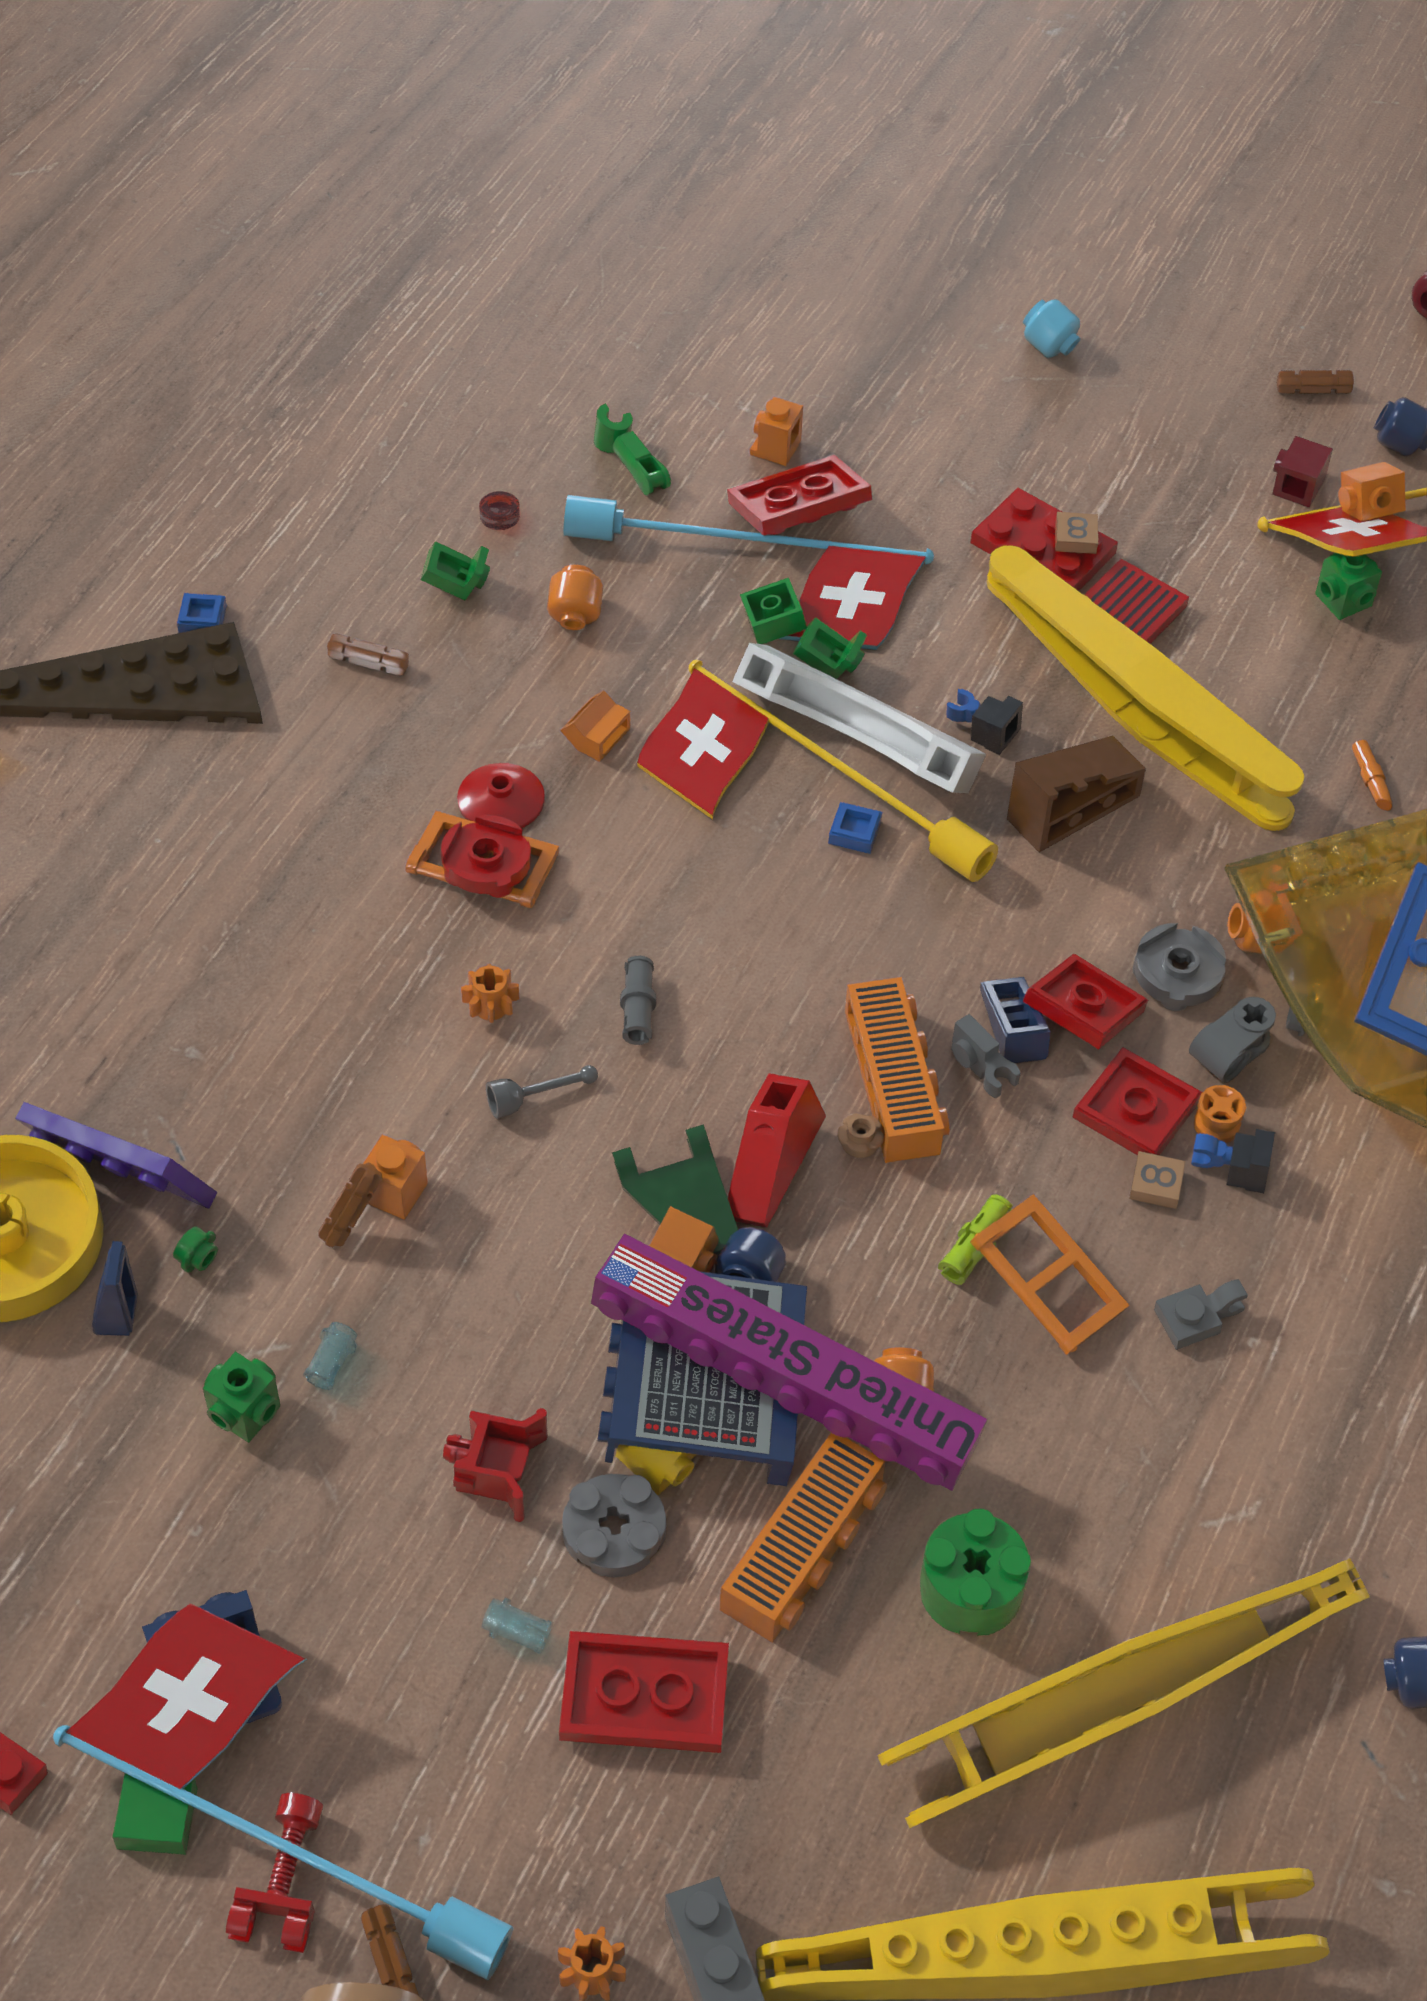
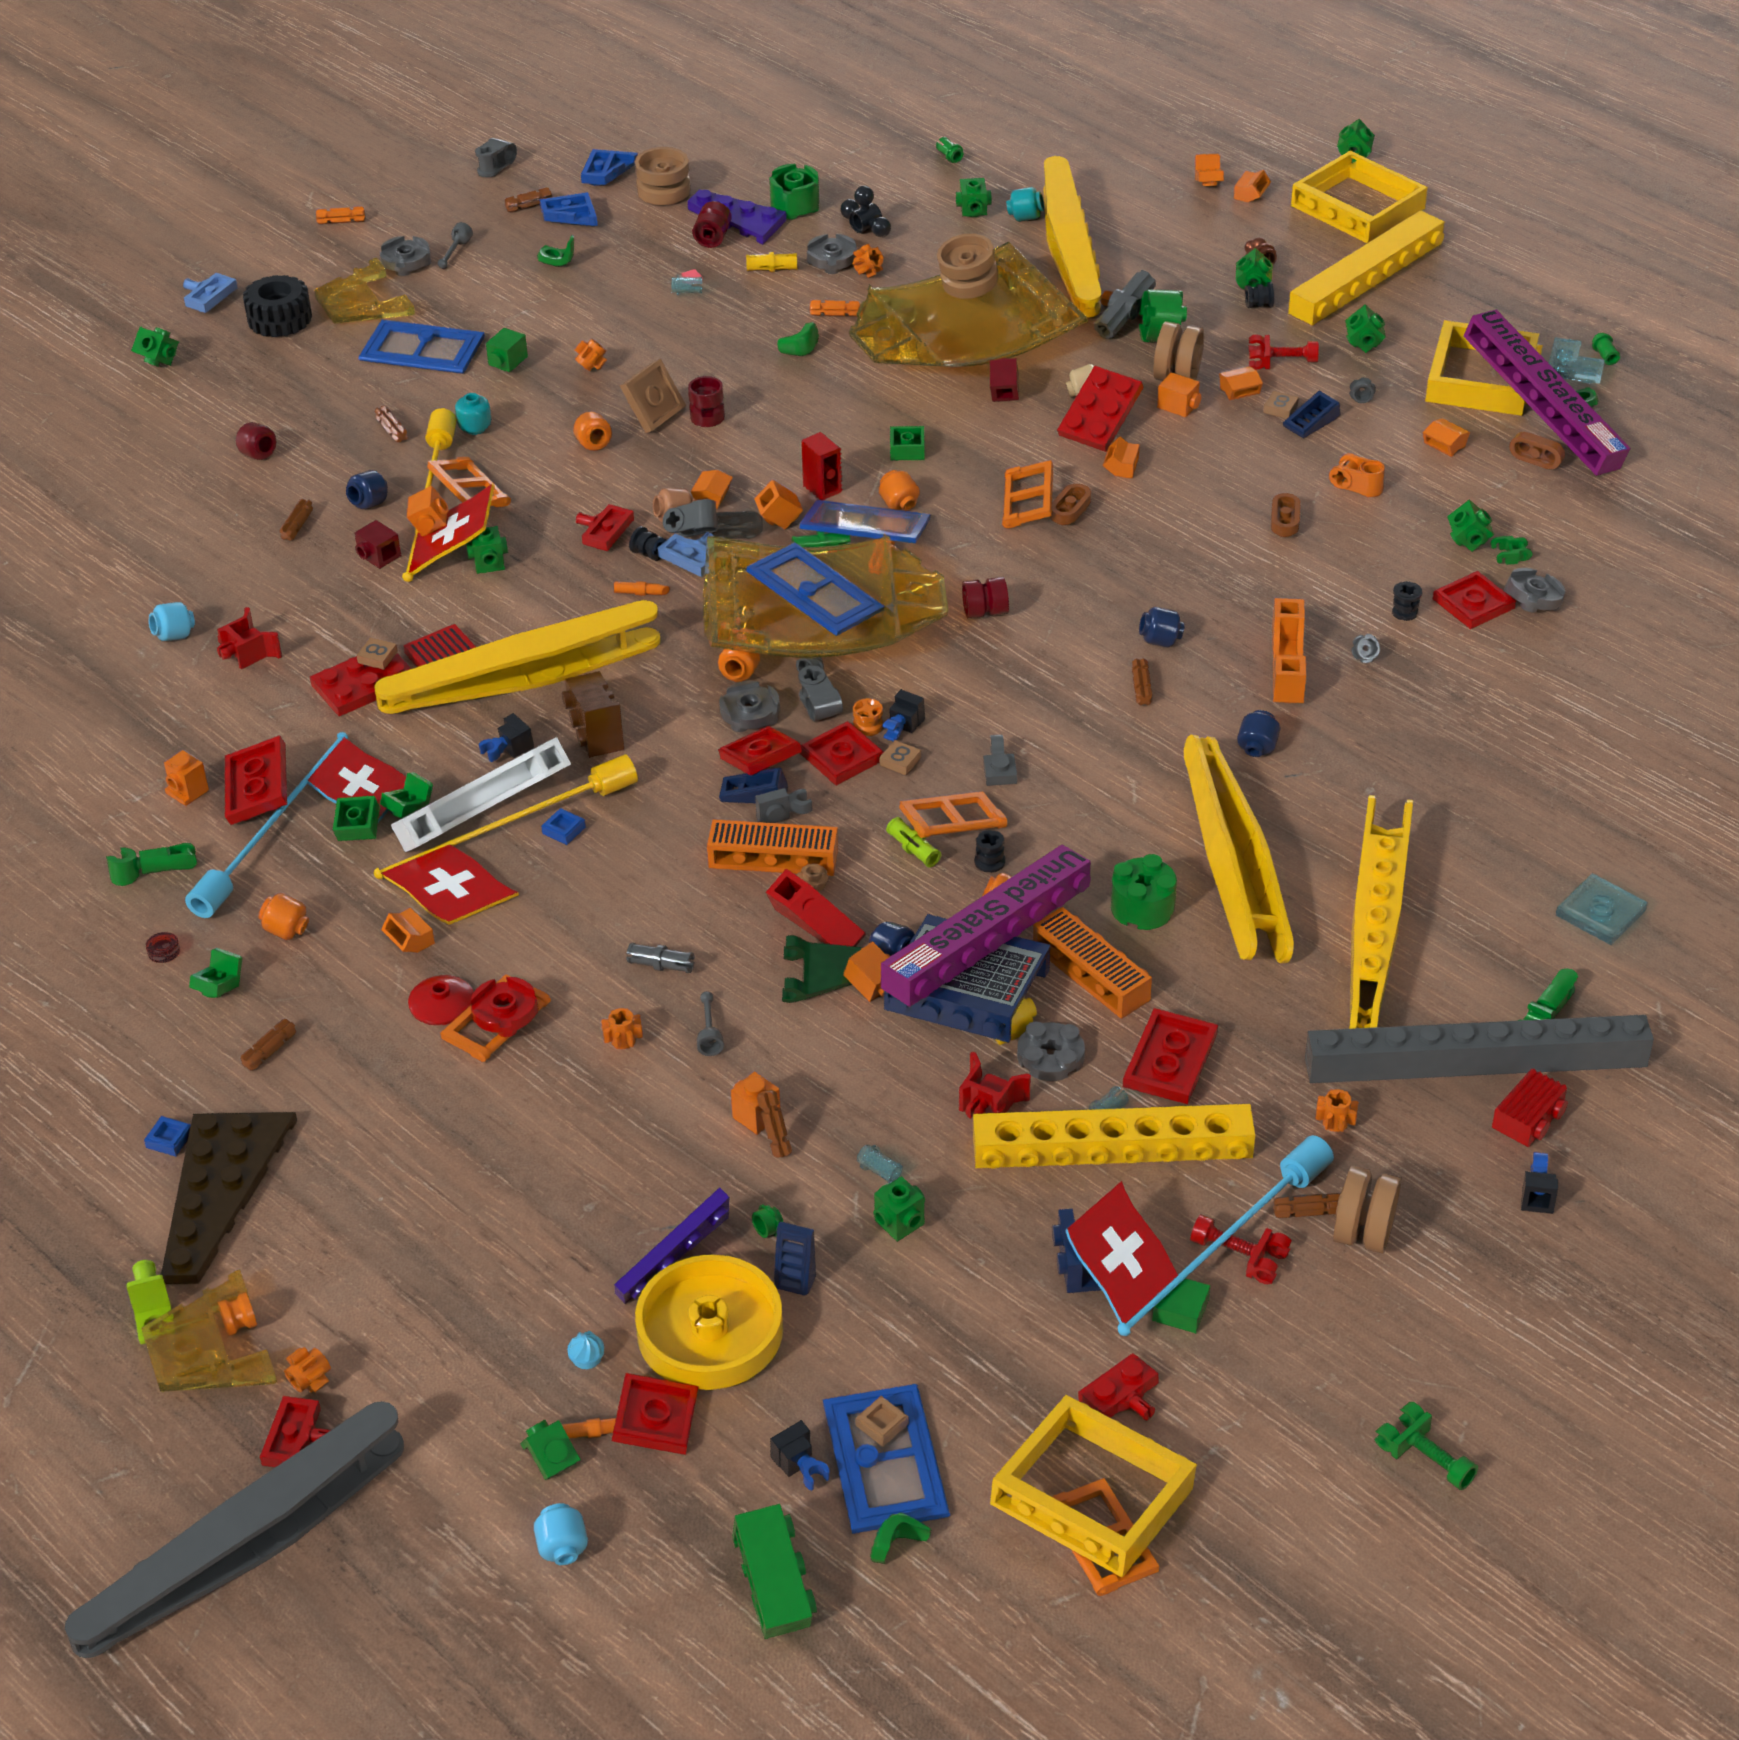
camera: 70 degrees left, 10 degrees down
(516, 1817) = (1113, 1136): none -> yellow brick
(992, 1343) = (989, 851): none -> black bush
(1052, 405) = (246, 642): none -> red piece

